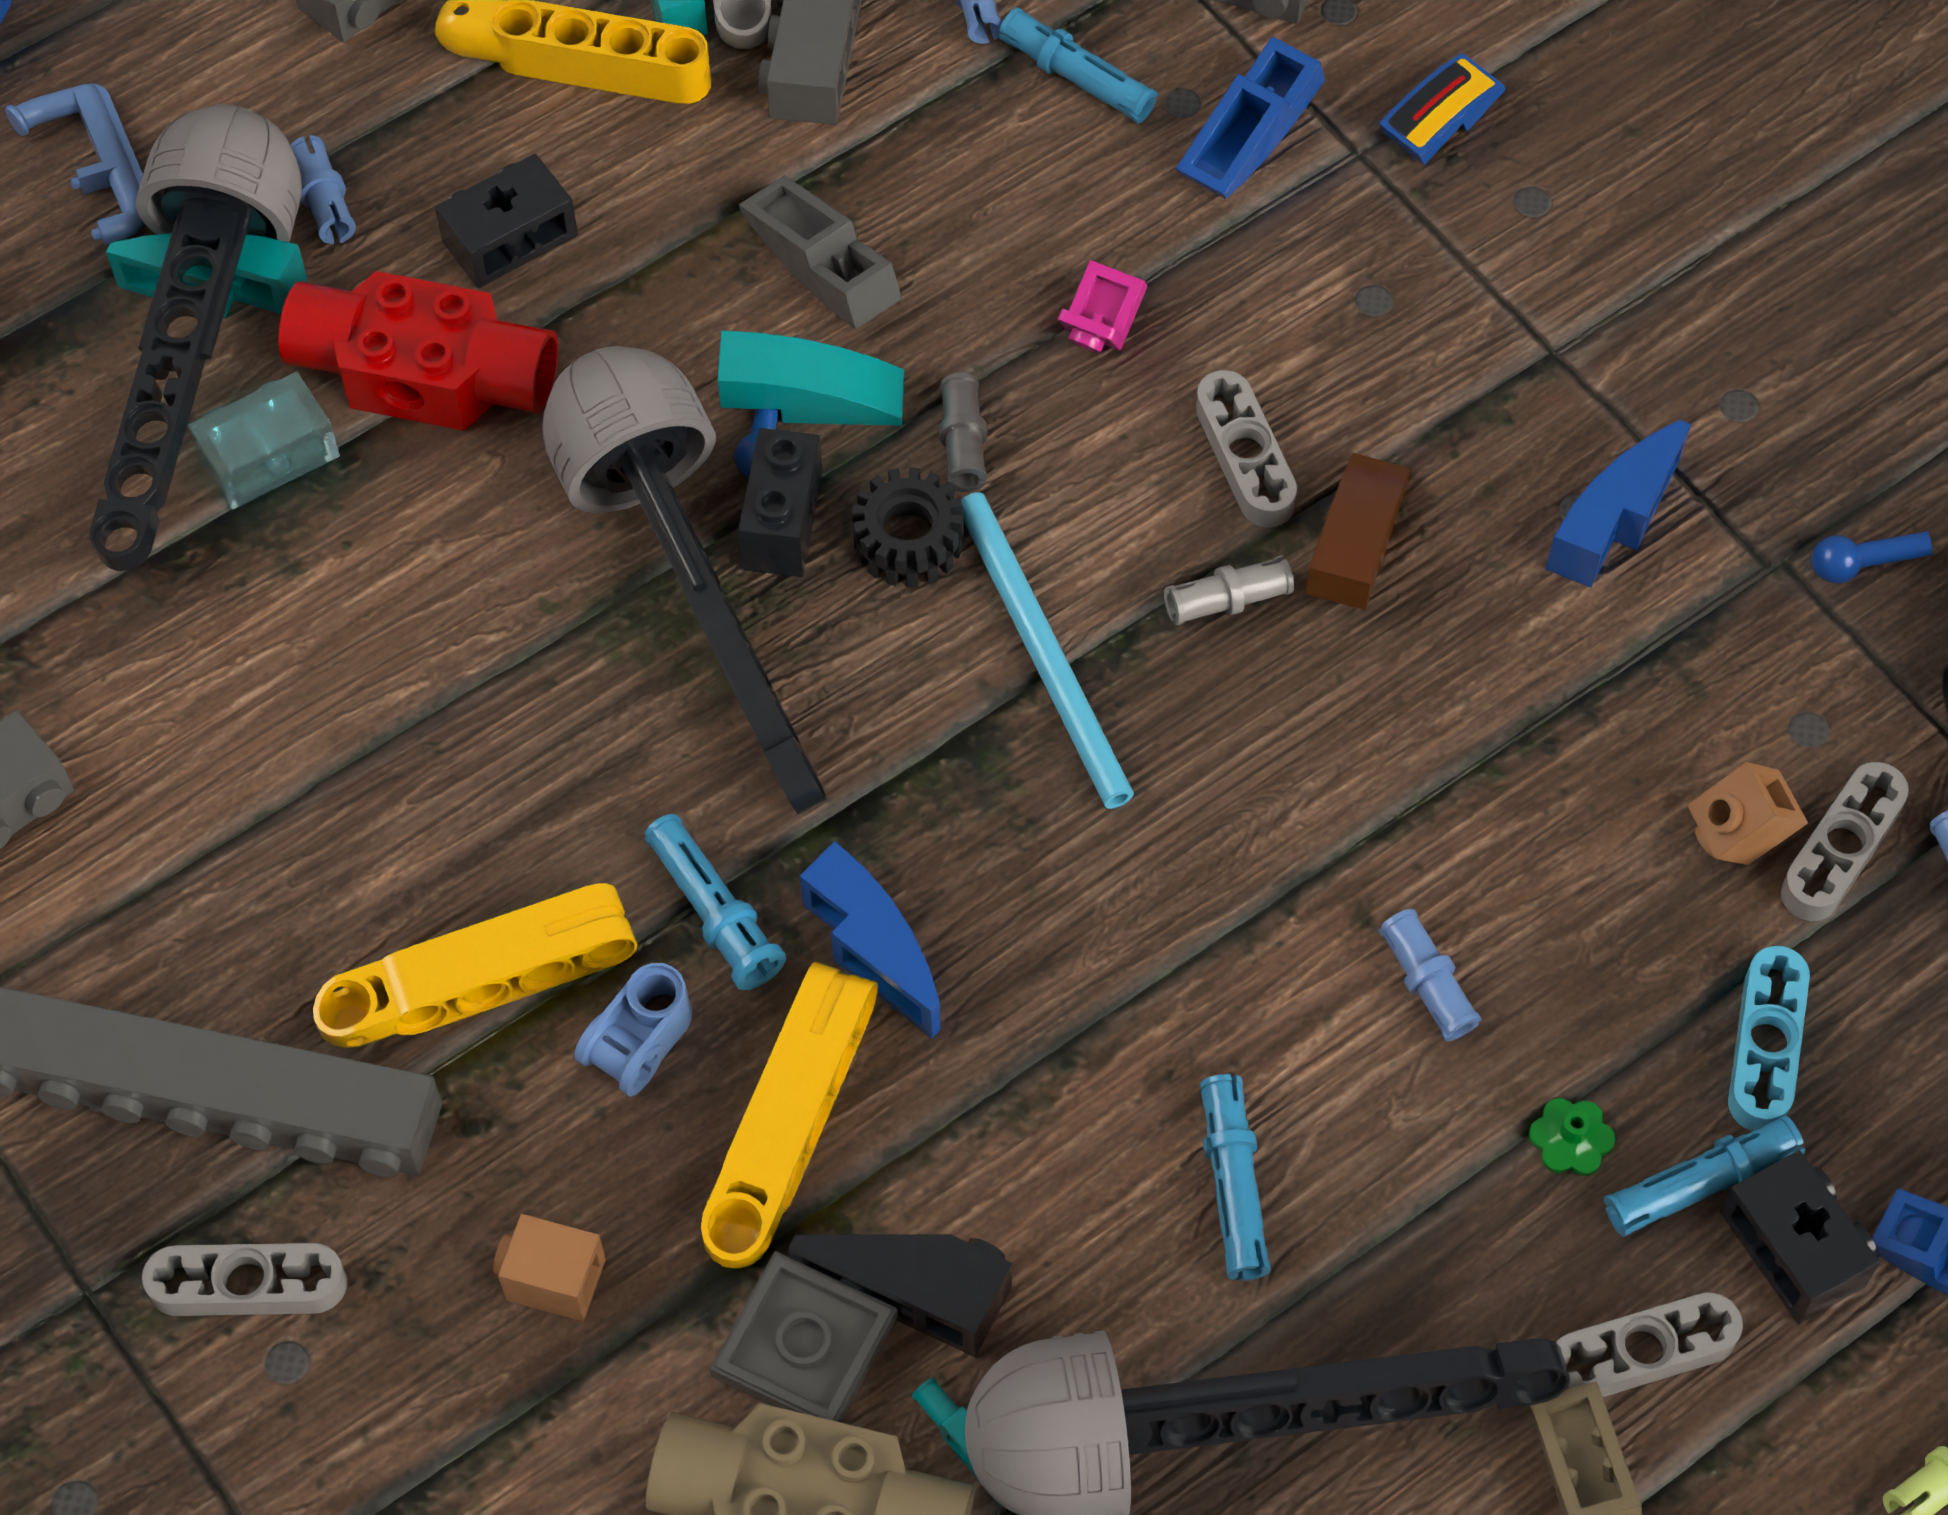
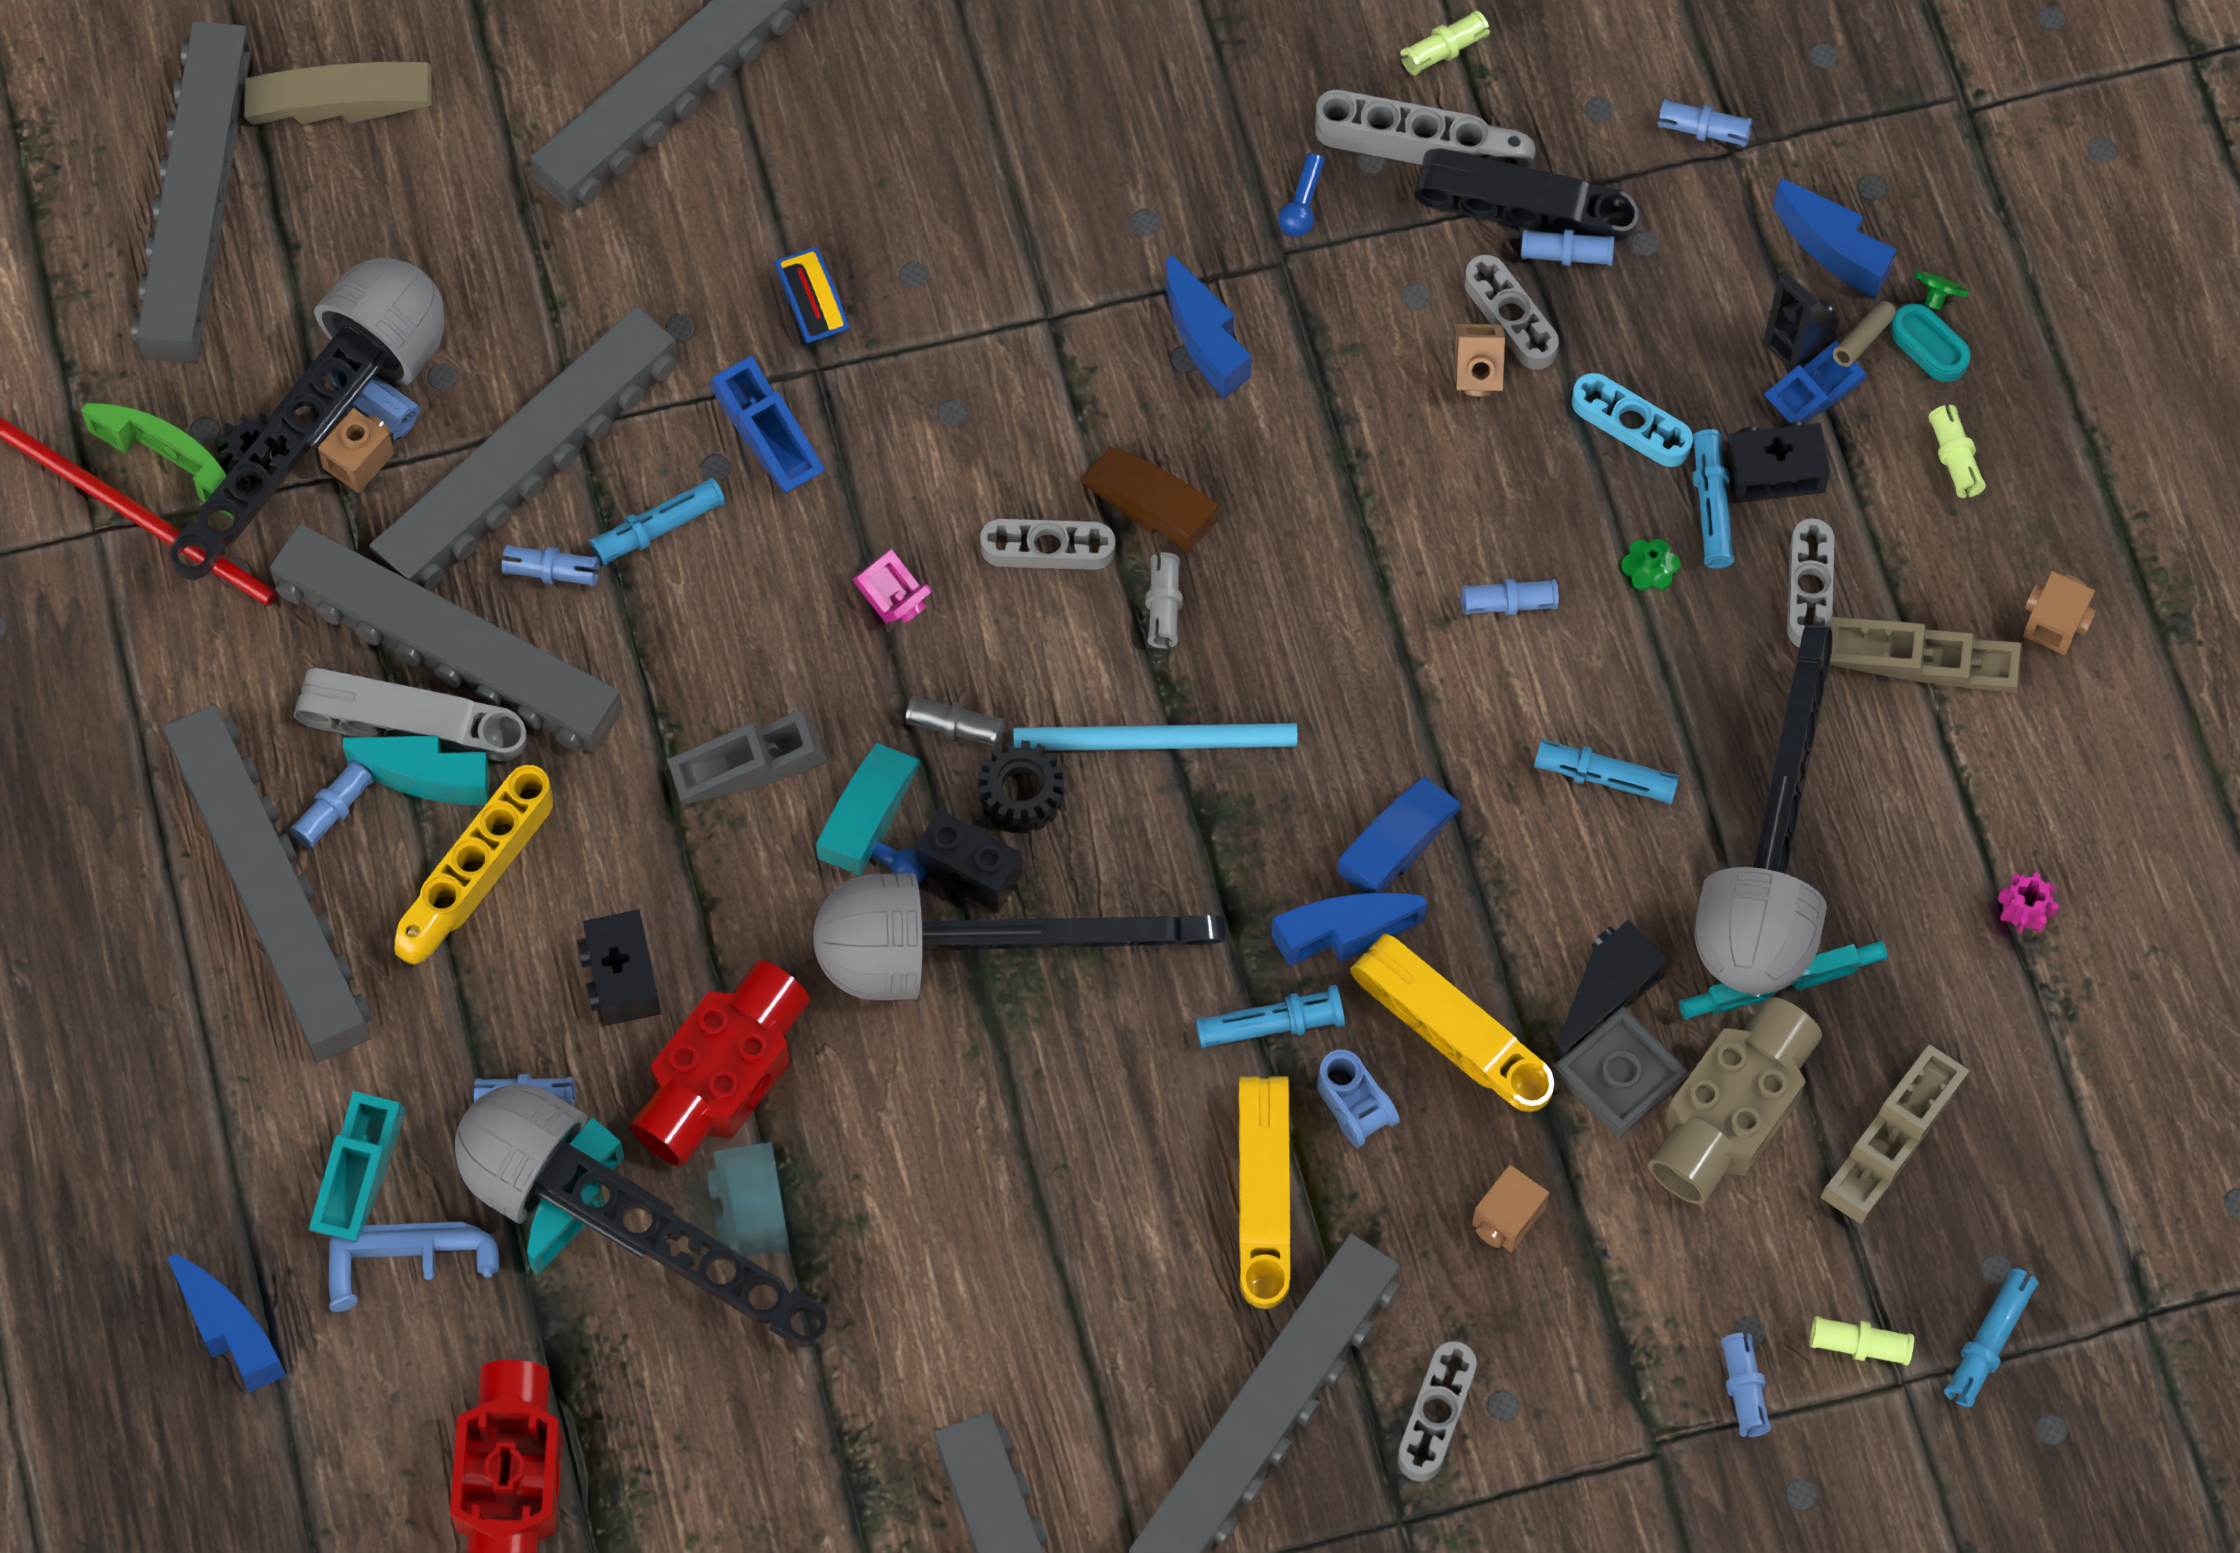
camera: 70 degrees left, 5 degrees up
(178, 71) = (357, 1166): none -> teal slope
(1024, 956) = (1397, 837): none -> blue slope

